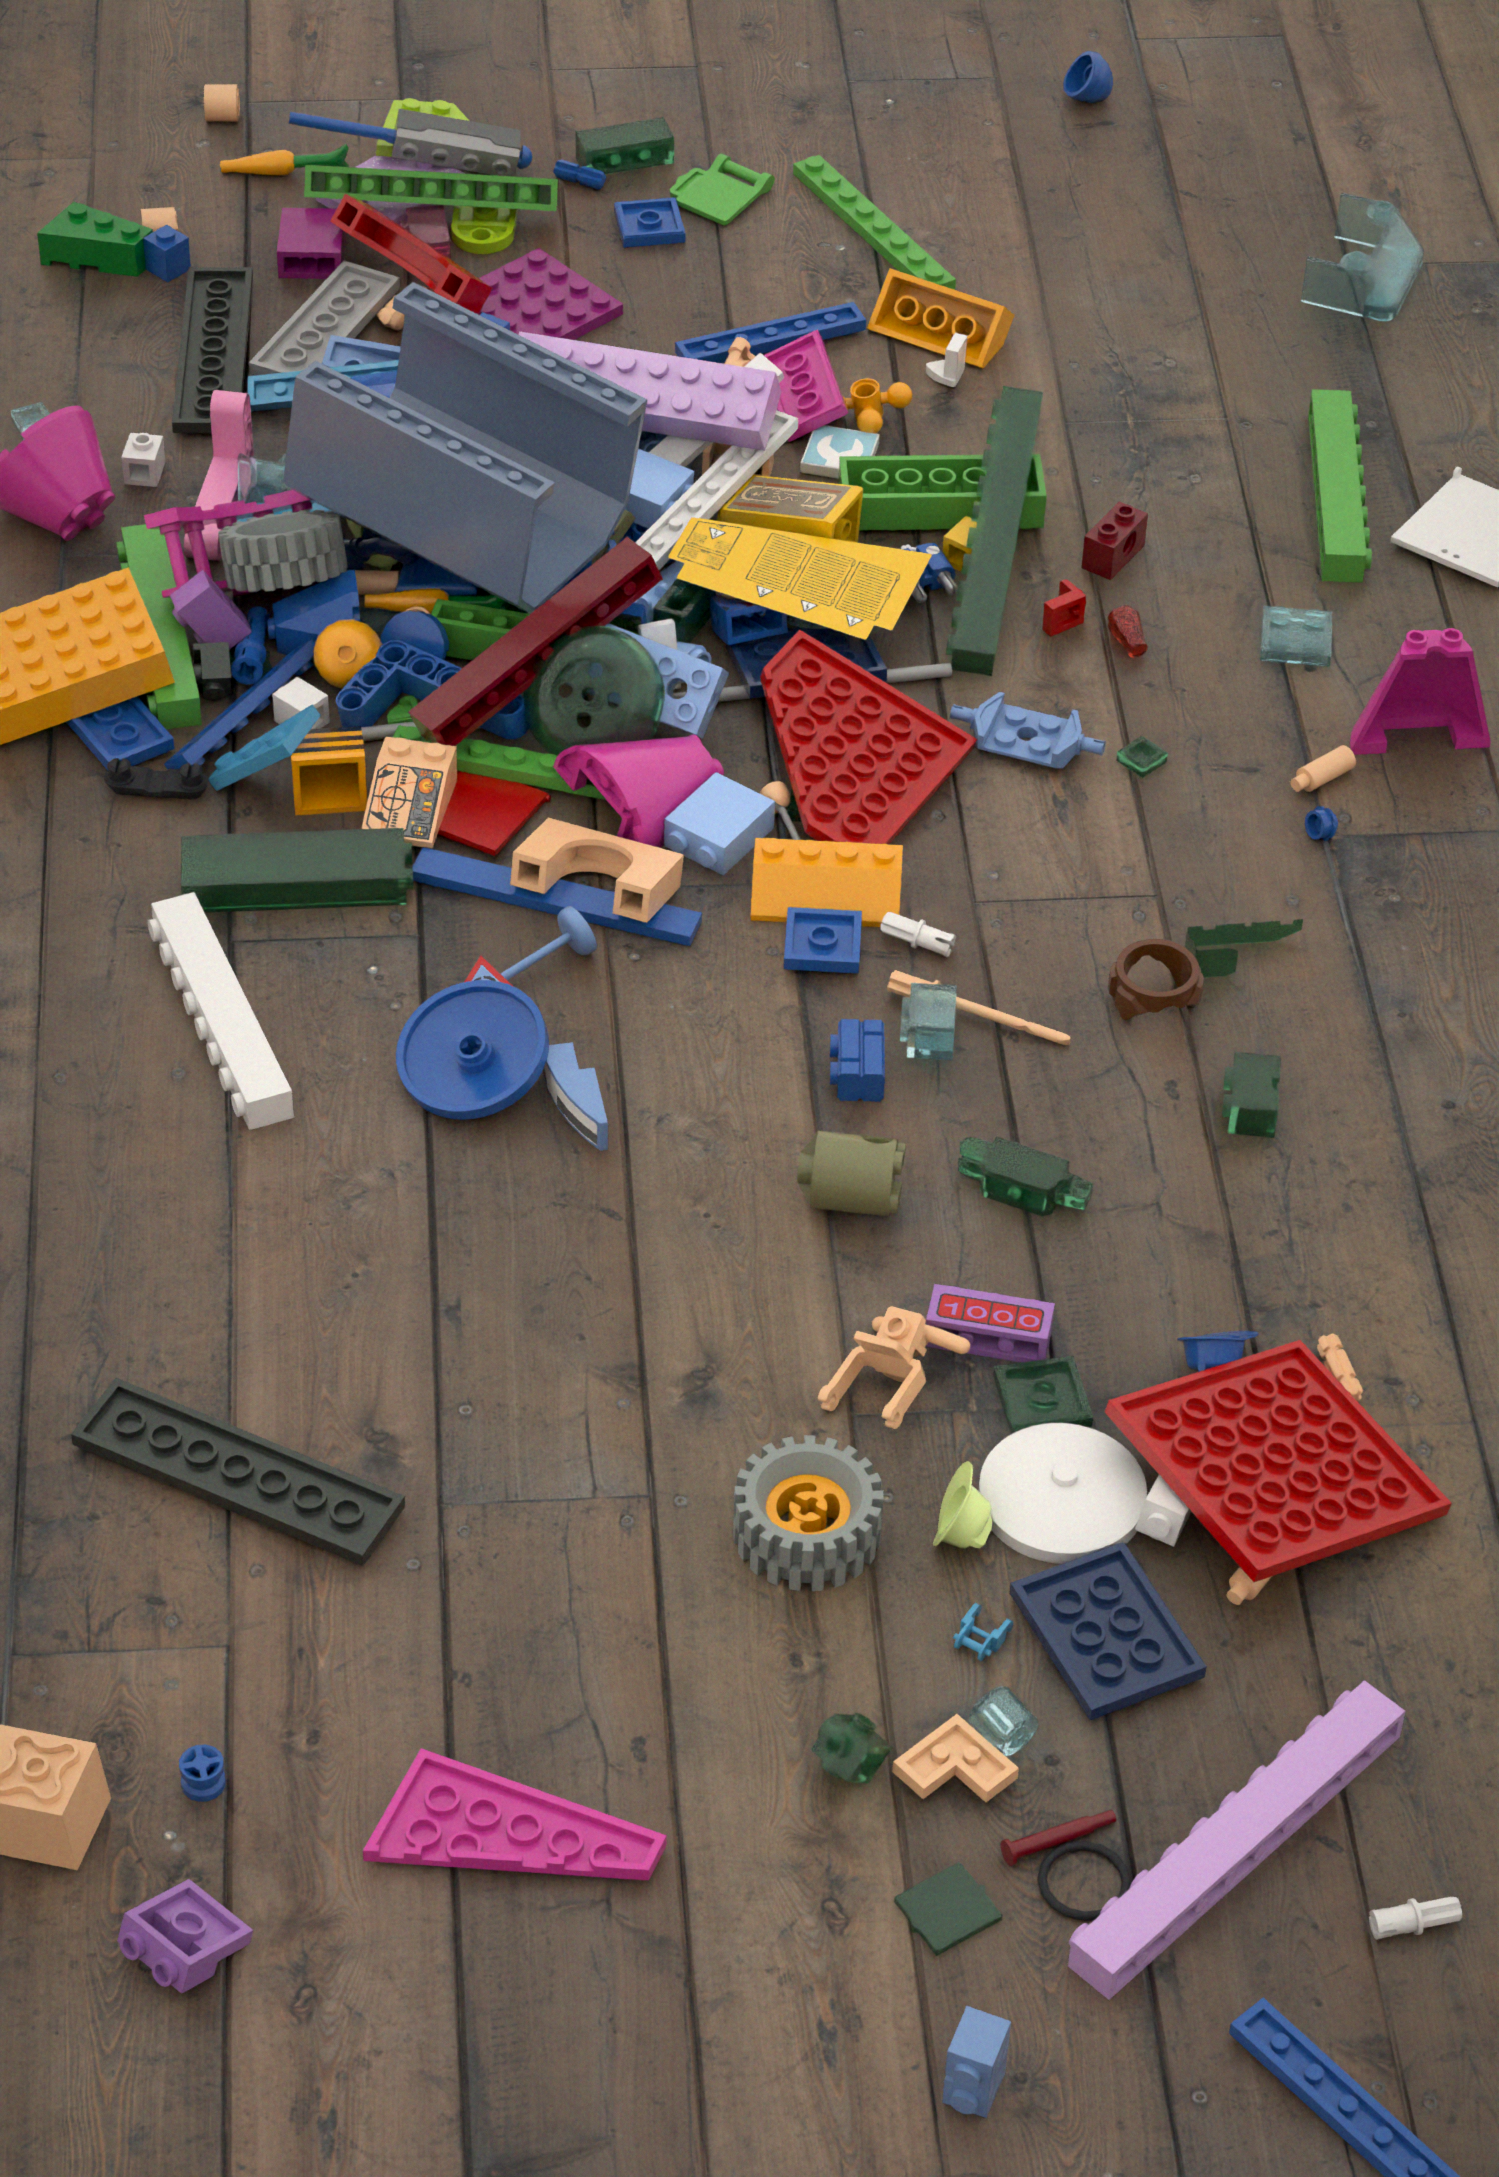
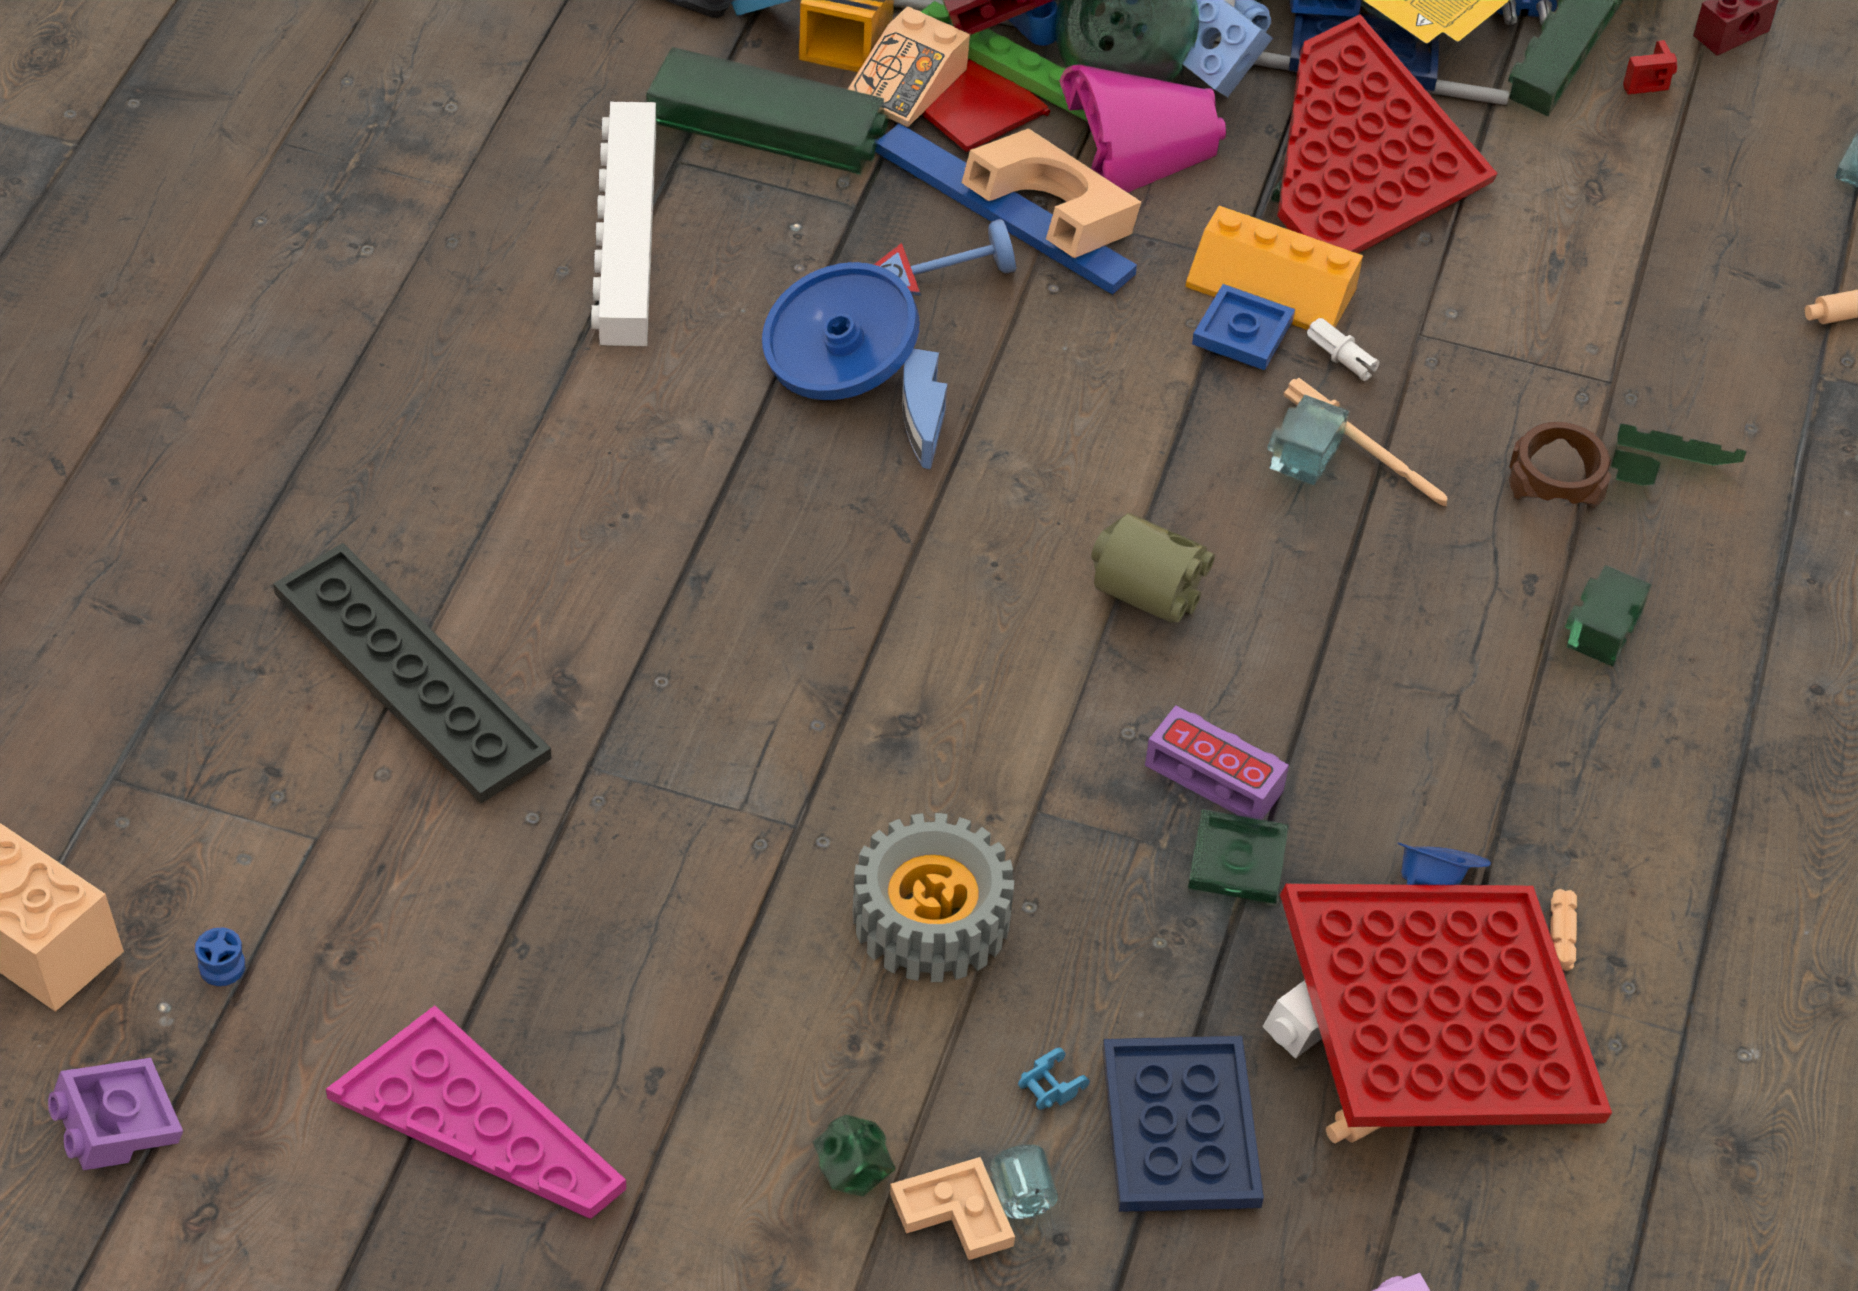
camera: 20 degrees right, 5 degrees up
(719, 823) = (1195, 180): light blue brick -> none
(779, 793) = (1266, 175): light nougat hinge -> none
(859, 1060) = (1218, 456): blue brick -> none
(898, 1340) = (1101, 760): light nougat piece -> none
(964, 1512) = (1094, 954): yellowish green piece -> none
(1002, 726) = (1530, 167): medium blue plate -> none
(1022, 1176) = (1327, 624): clear green hinge -> none
(1062, 1491) = (1206, 961): white dish -> none
(1128, 630) = (1707, 108): clear red cone -> none
(1142, 756) = (1662, 239): clear green tile -> none
(1321, 823) = (1816, 359): blue plate -> none

